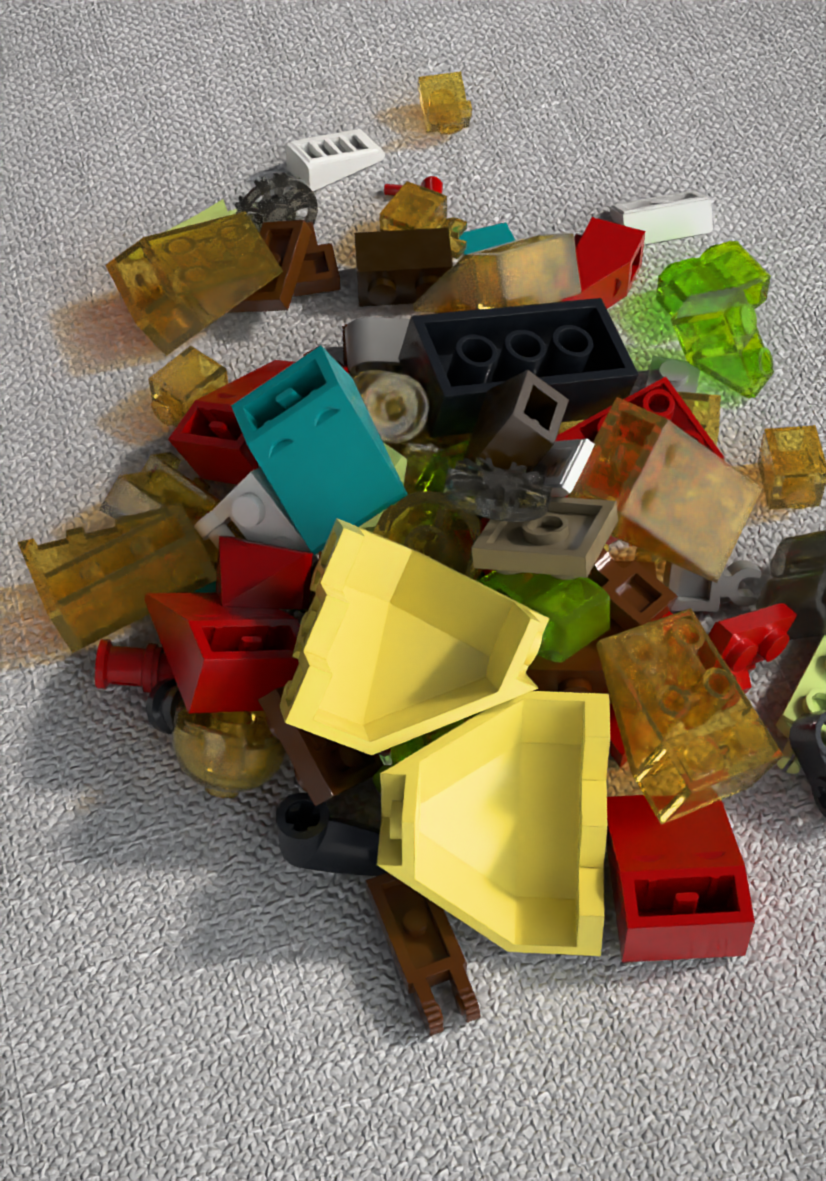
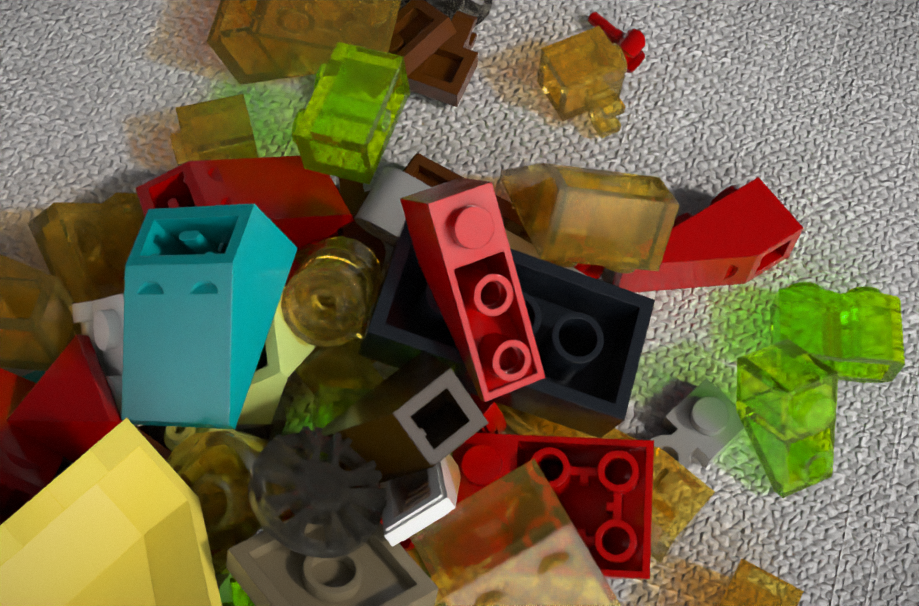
camera: 30 degrees right, 10 degrees up
(291, 307) = (351, 112): none -> clear neon green brick
(400, 264) = (528, 117): dark brown brick -> none
(486, 323) = (475, 282): none -> red slope
(487, 237) = (647, 139): teal sticker -> none
(666, 216) = (855, 213): white slope -> none

